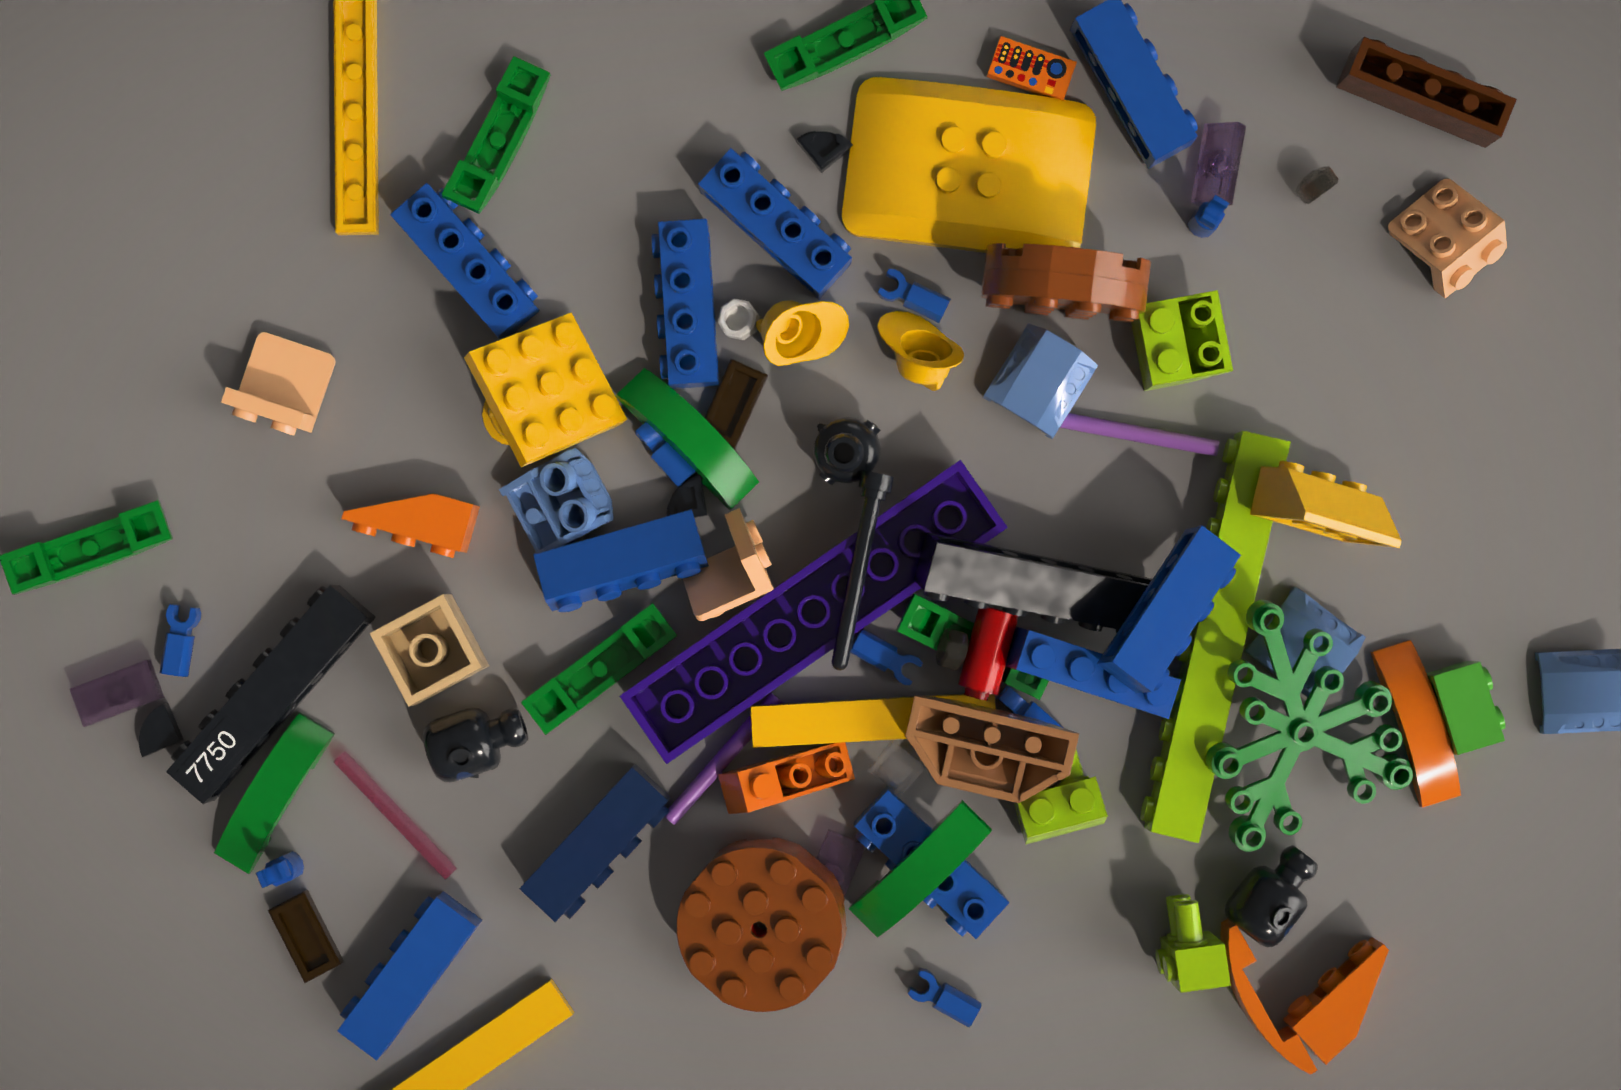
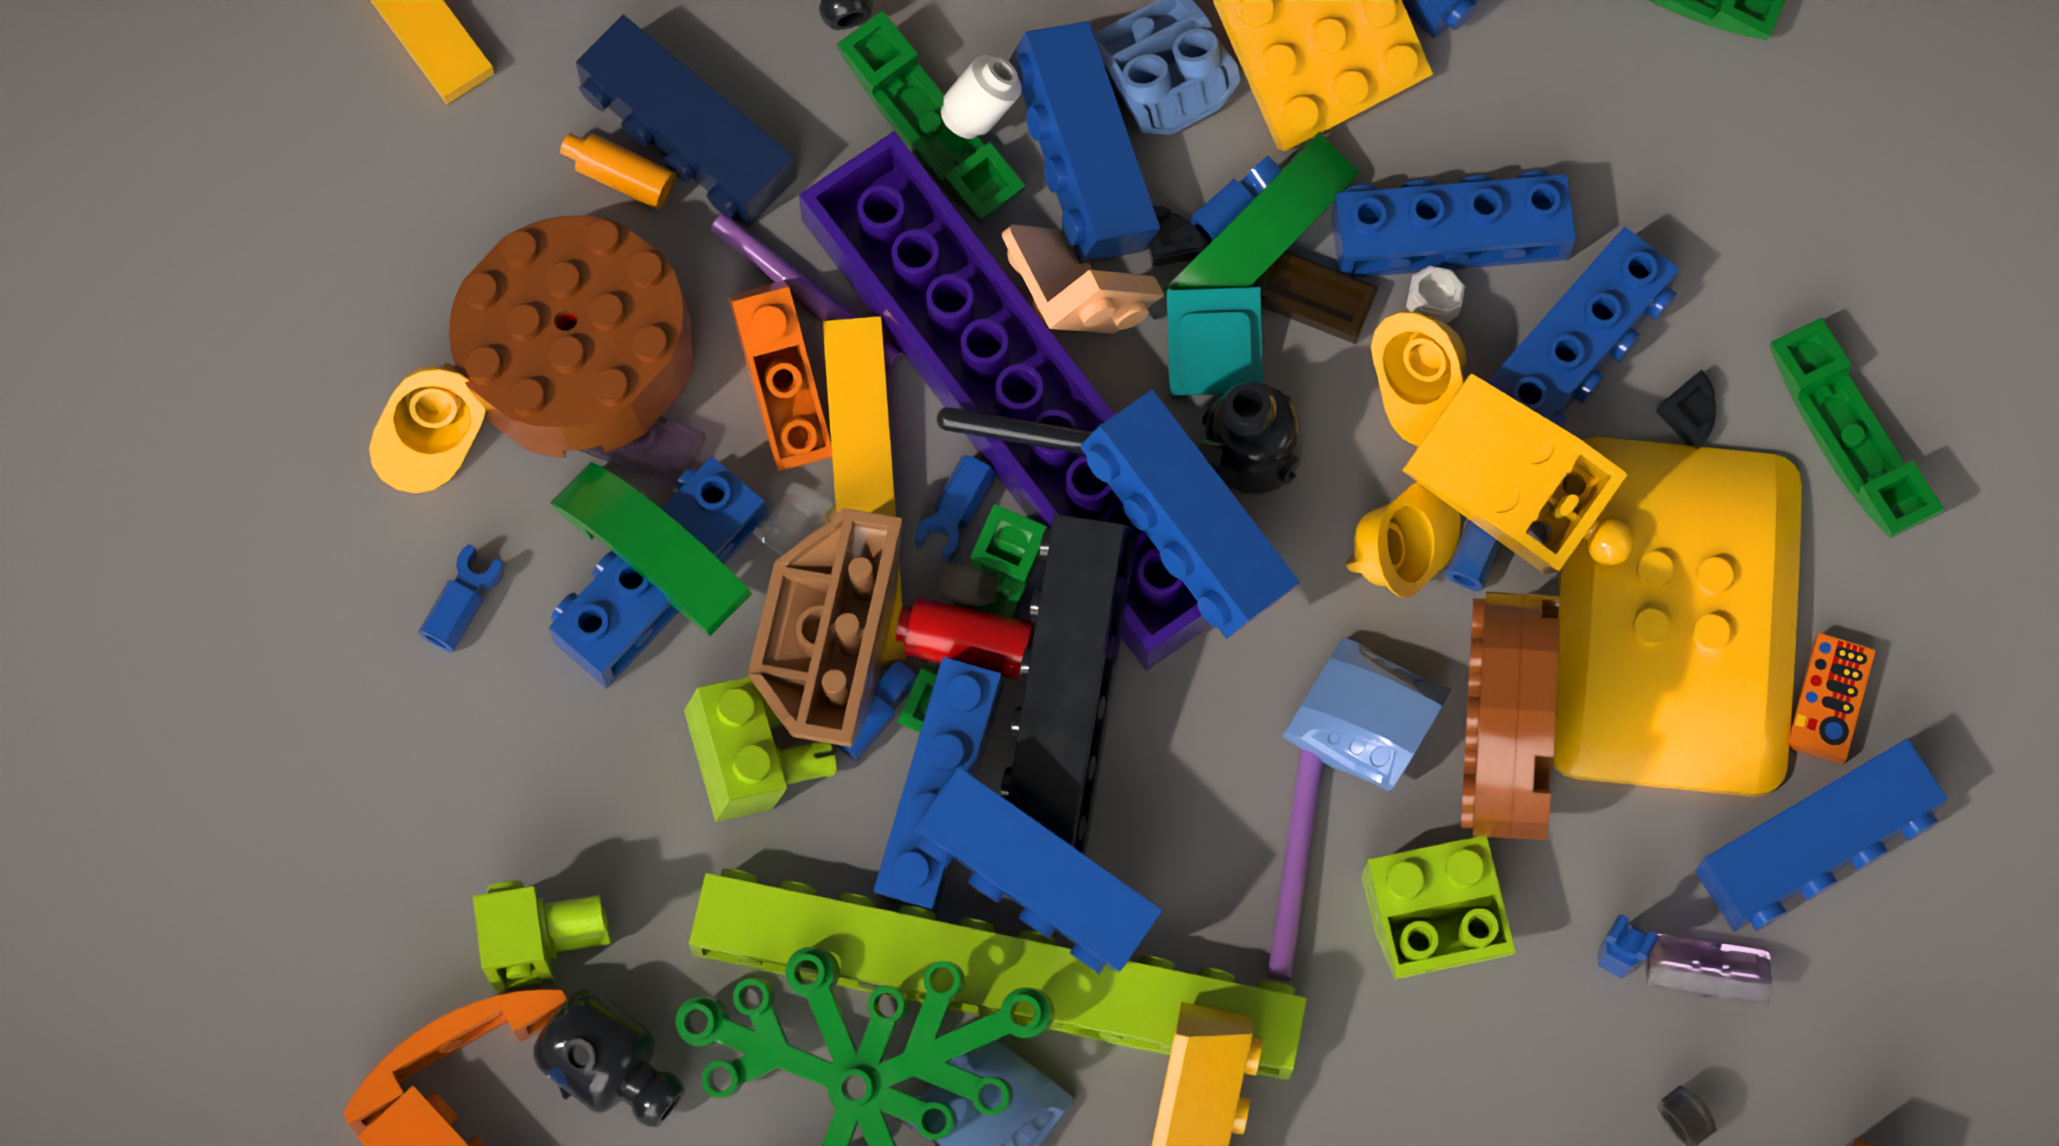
camera: 85 degrees right, 15 degrees down
(588, 632) = (980, 96): none -> white brick
(630, 889) = (620, 169): none -> light orange cylinder
(770, 474) = (1213, 339): none -> teal piece
(825, 1026) = (425, 429): none -> yellow piece
(888, 266) = (1508, 470): none -> yellow slope
(924, 497) = (1188, 514): none -> blue brick

